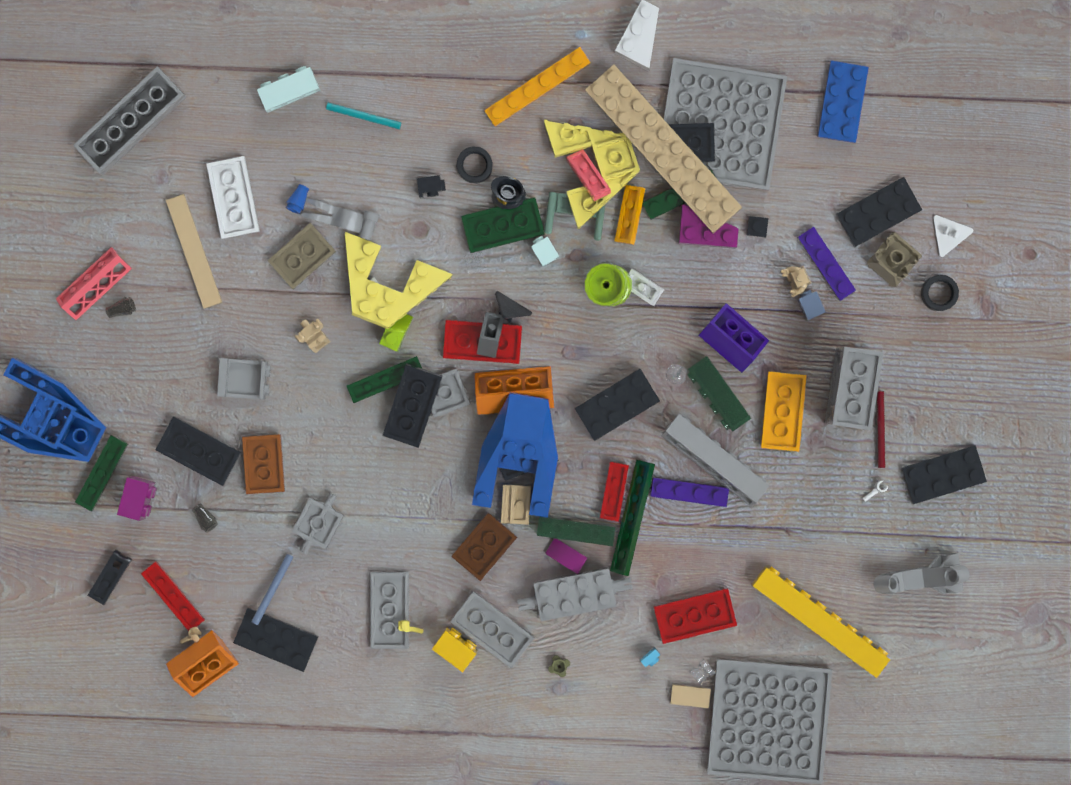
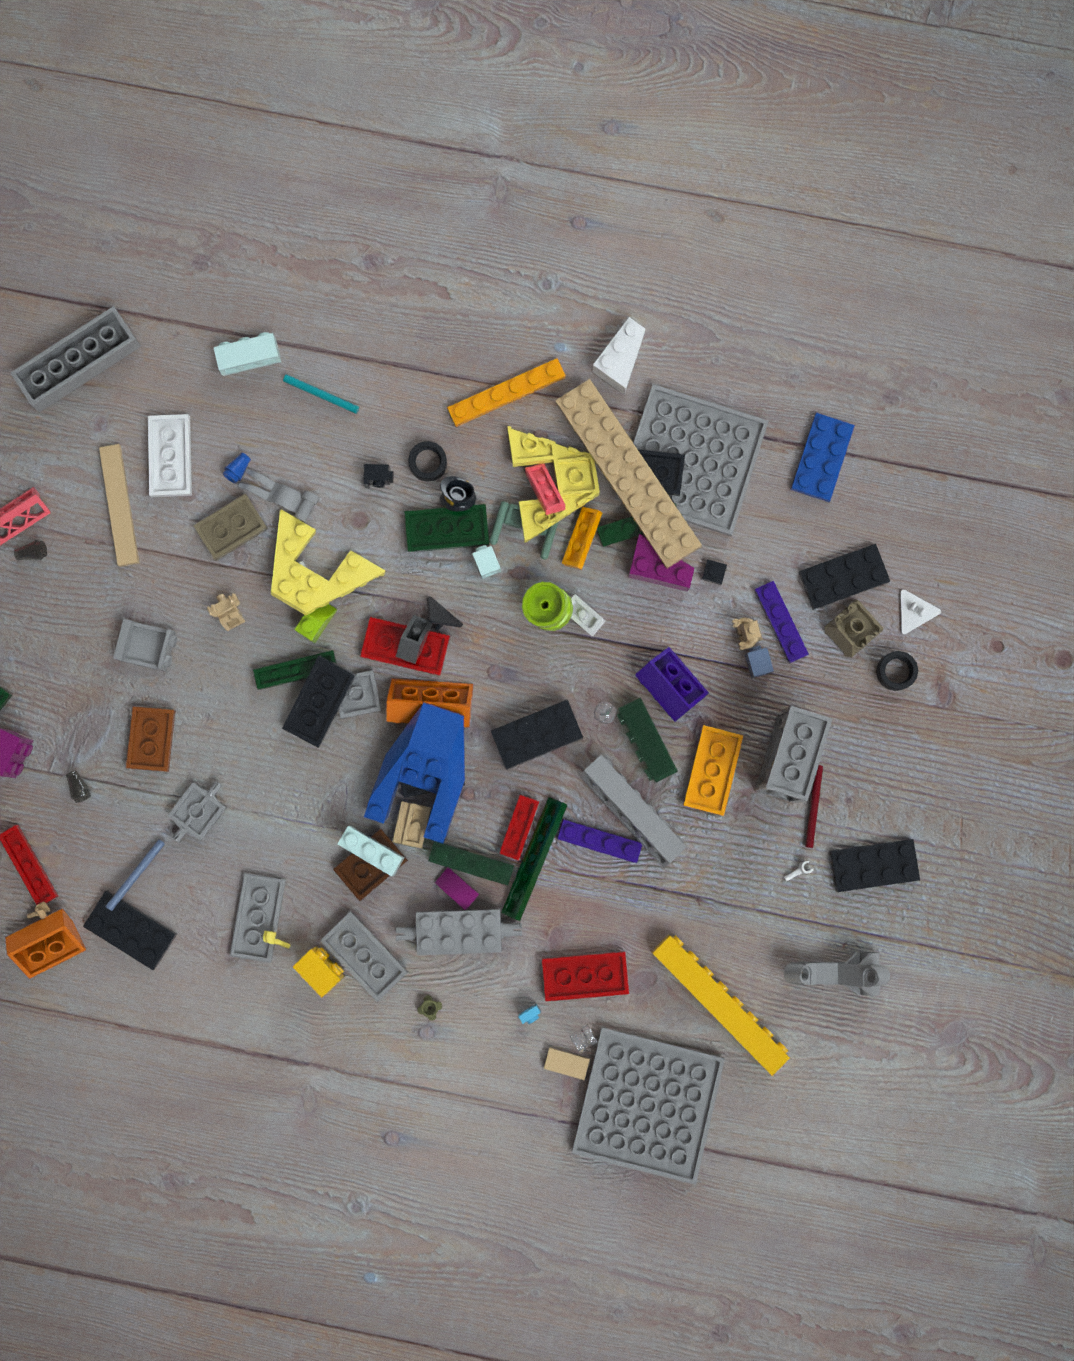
camera: 10 degrees right, 5 degrees down
(198, 451) = (84, 714): black plate -> none
(483, 534) = (371, 850): none -> light aqua brick

